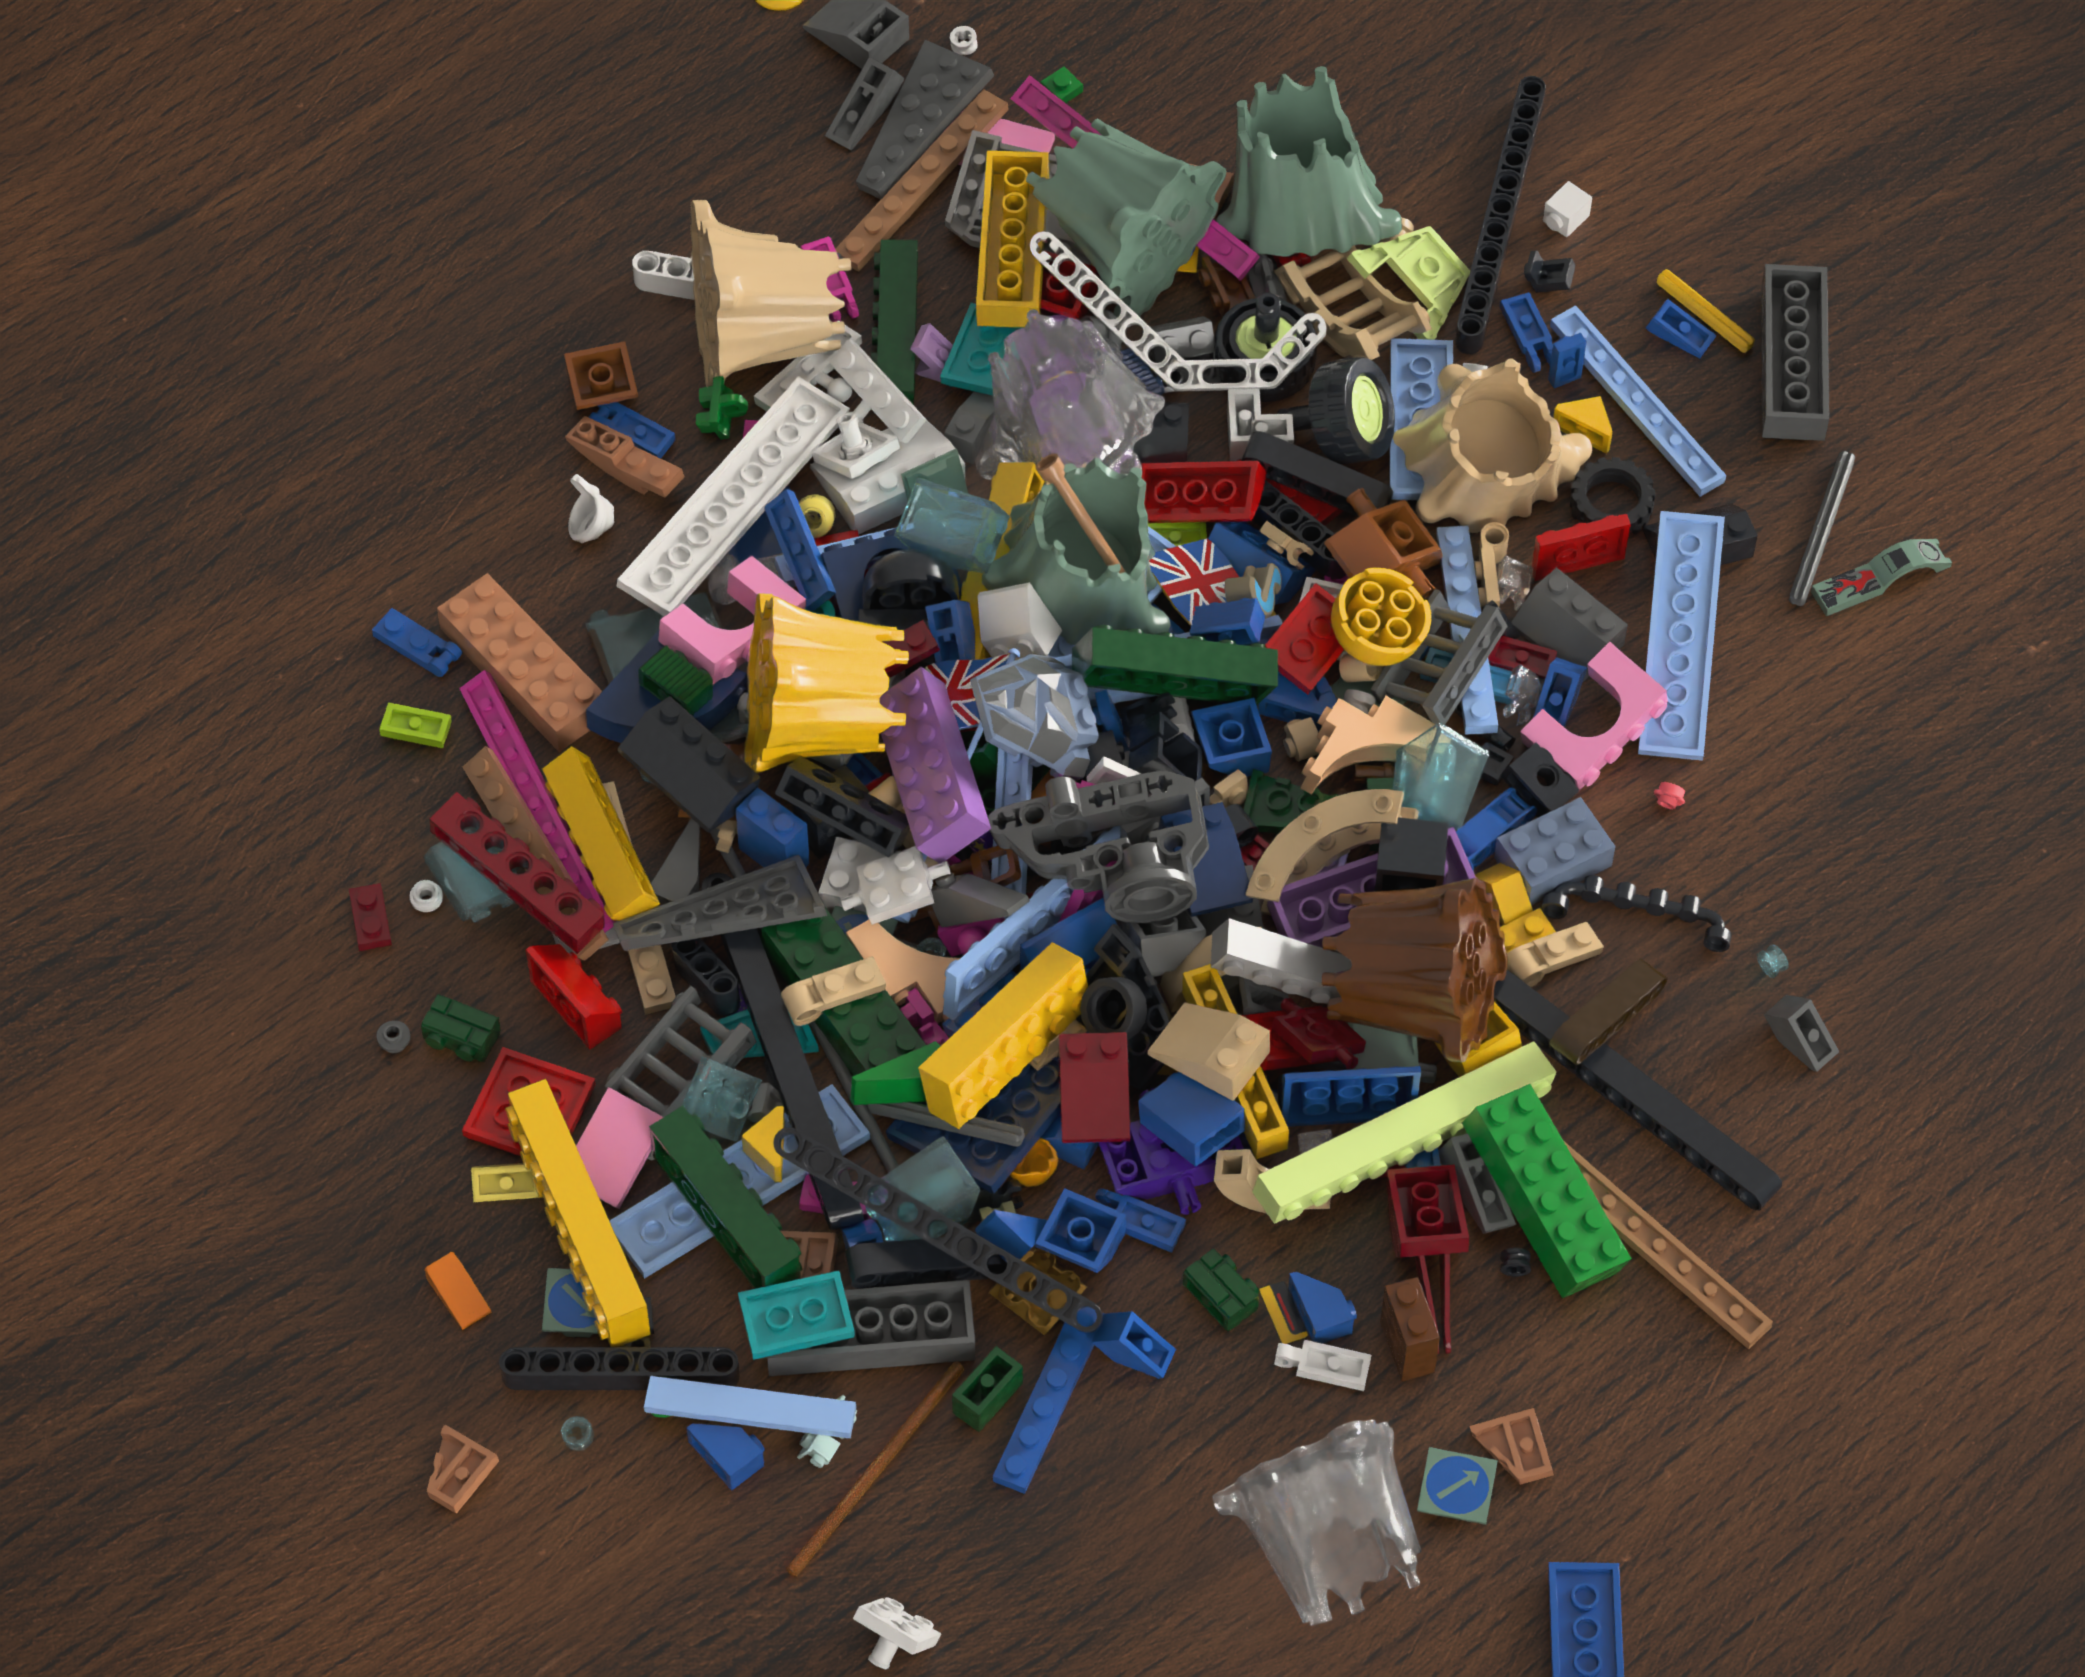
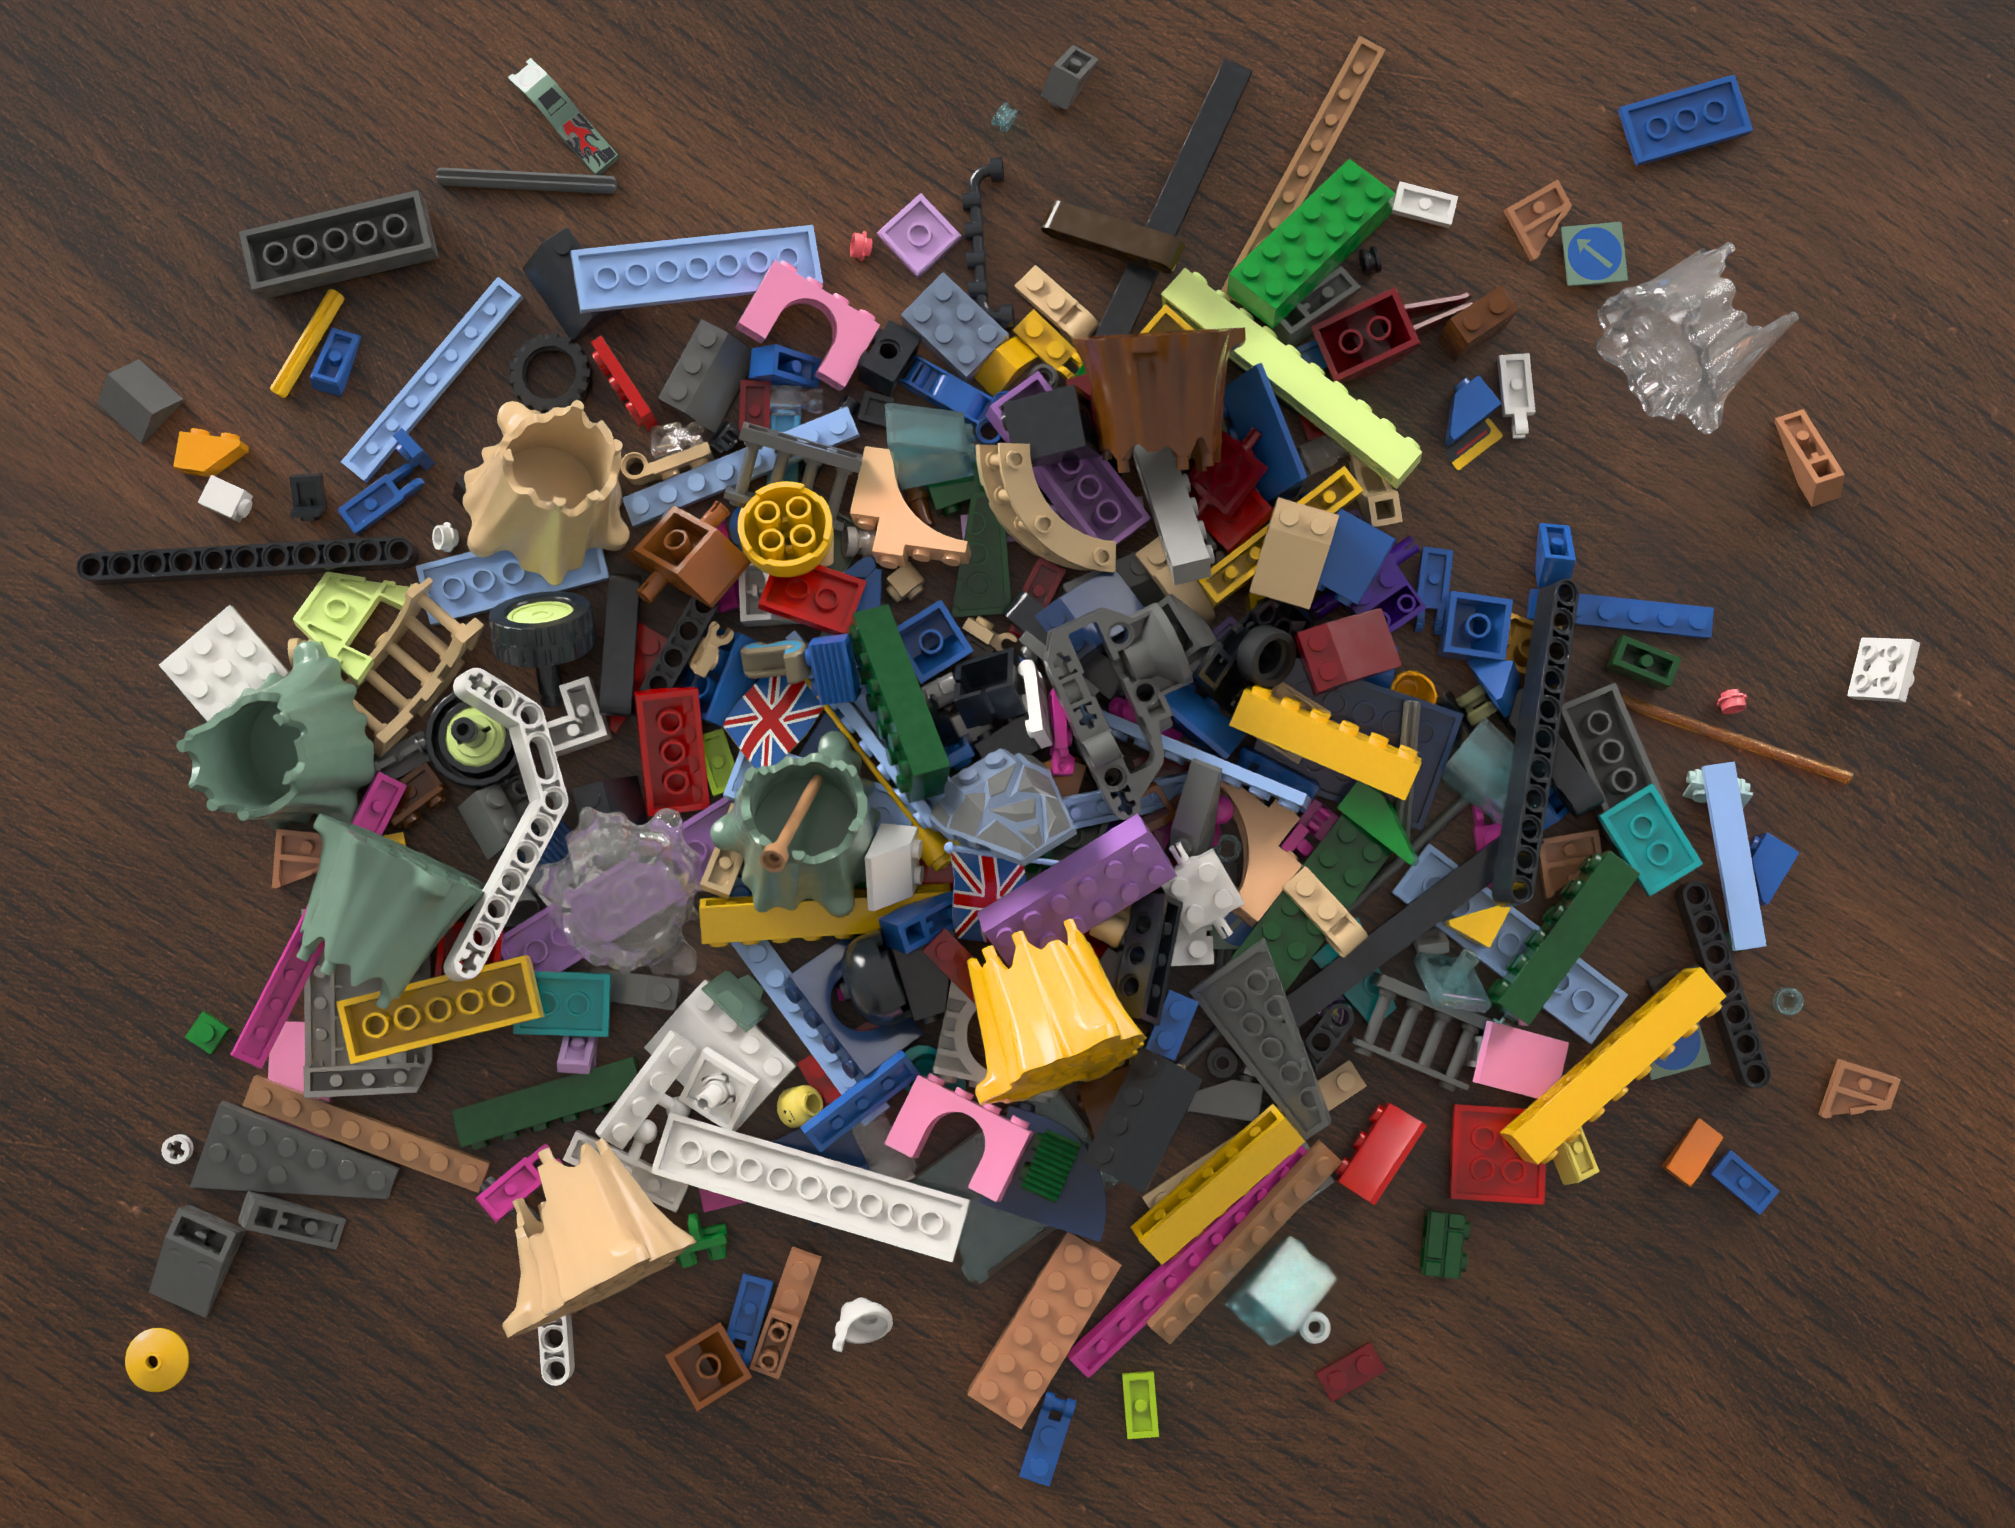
camera: 110 degrees left, 25 degrees up
(396, 1044) = (1456, 1303): dark grey plate -> none
(408, 1328) = (1743, 1182): none -> blue plate
(573, 929) = (1337, 1170): dark red brick -> none
(916, 1475) = (1732, 701): none -> coral plate
(952, 526) = (812, 954): clear light blue slope -> none
(1158, 1635) = (1810, 458): none -> nougat slope
(1221, 1289) = (1478, 497): dark green brick -> none
(1411, 172) = (221, 663): none -> white plate
(1563, 1335) = (1424, 204): none -> white plate
(1587, 418) = (473, 417): yellow slope -> none
(1616, 204) = (206, 454): none -> light orange slope
(1667, 853) = (919, 235): none -> lavender tile
(1689, 168) = (138, 399): none -> dark grey slope

